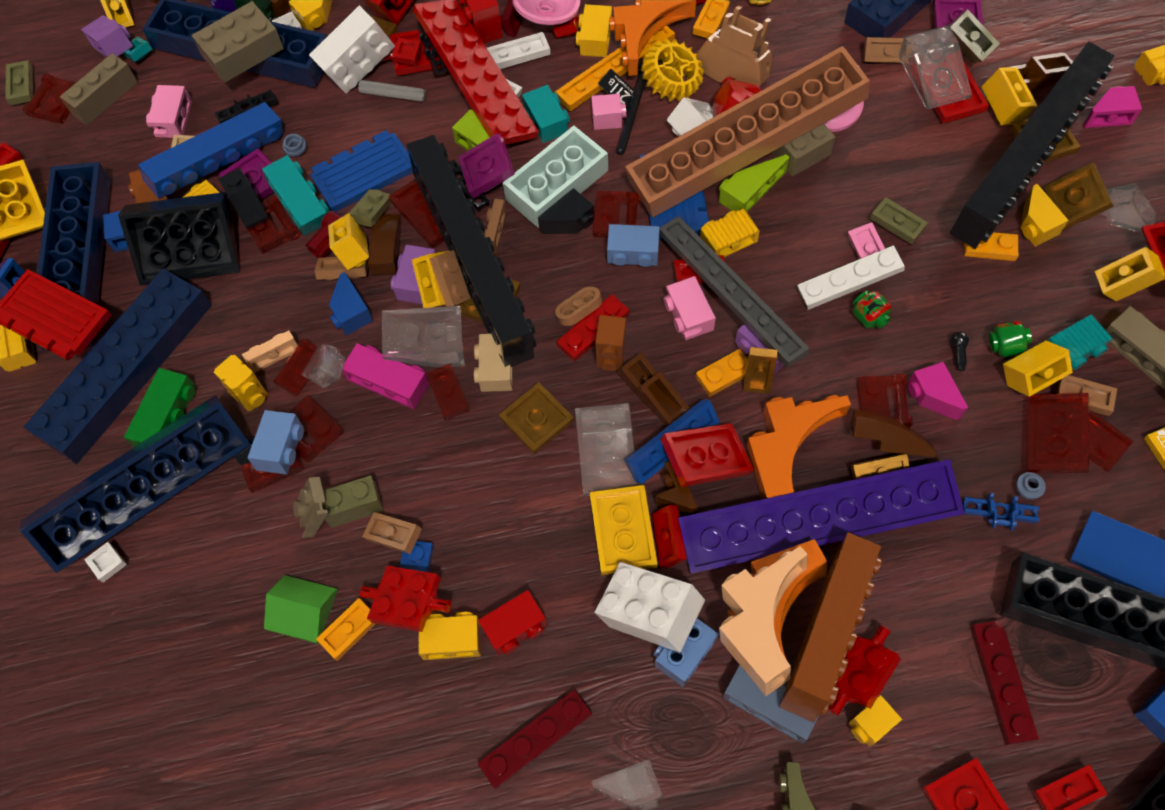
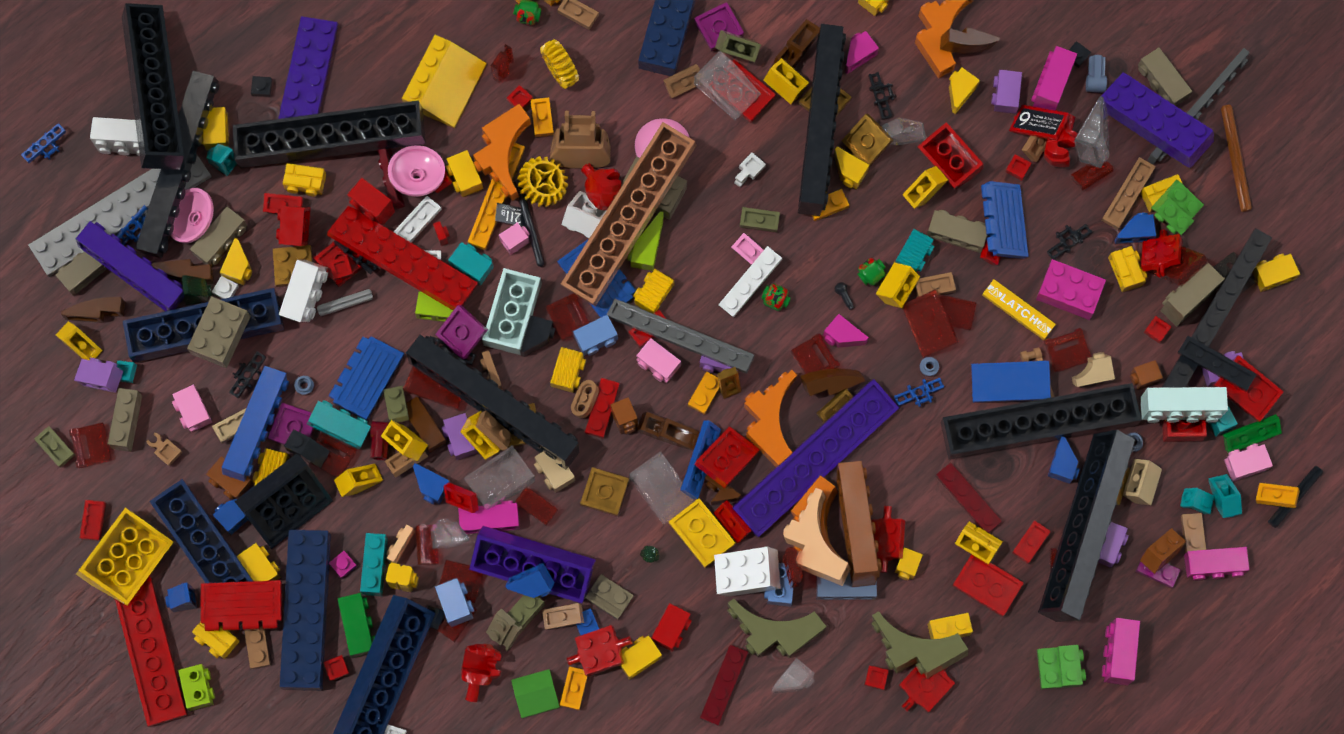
camera: 35 degrees left, 10 degrees up
(46, 377) = (257, 648): none -> medium nougat plate
(105, 446) = (336, 668): none -> red plate
(112, 289) = (257, 564): none -> yellow brick
(115, 137) = (165, 450): none -> medium nougat plate
(198, 341) = (343, 564): none -> dark pink plate
(236, 340) = (374, 564): none -> teal brick
(252, 537) = (479, 668): none -> red piece
(276, 261) = (357, 479): none -> yellow slope
(366, 332) = (461, 497): none -> red plate
(376, 467) = (532, 582): none -> blue slope
(395, 451) = (508, 555): none -> dark purple brick
(464, 543) = (609, 597): none -> dark tan plate
(533, 72) = (442, 233): none -> red plate
(543, 519) = (650, 554): none -> clear green plate
(579, 266) = (567, 370): none -> yellow brick
(628, 703) = (765, 633): none -> olive arch
(709, 638) = (793, 572): none -> clear red plate
(917, 163) = (750, 168): none -> white plate
(991, 749) = (978, 542): none -> yellow brick
(1119, 168) = (877, 86): none -> black piece

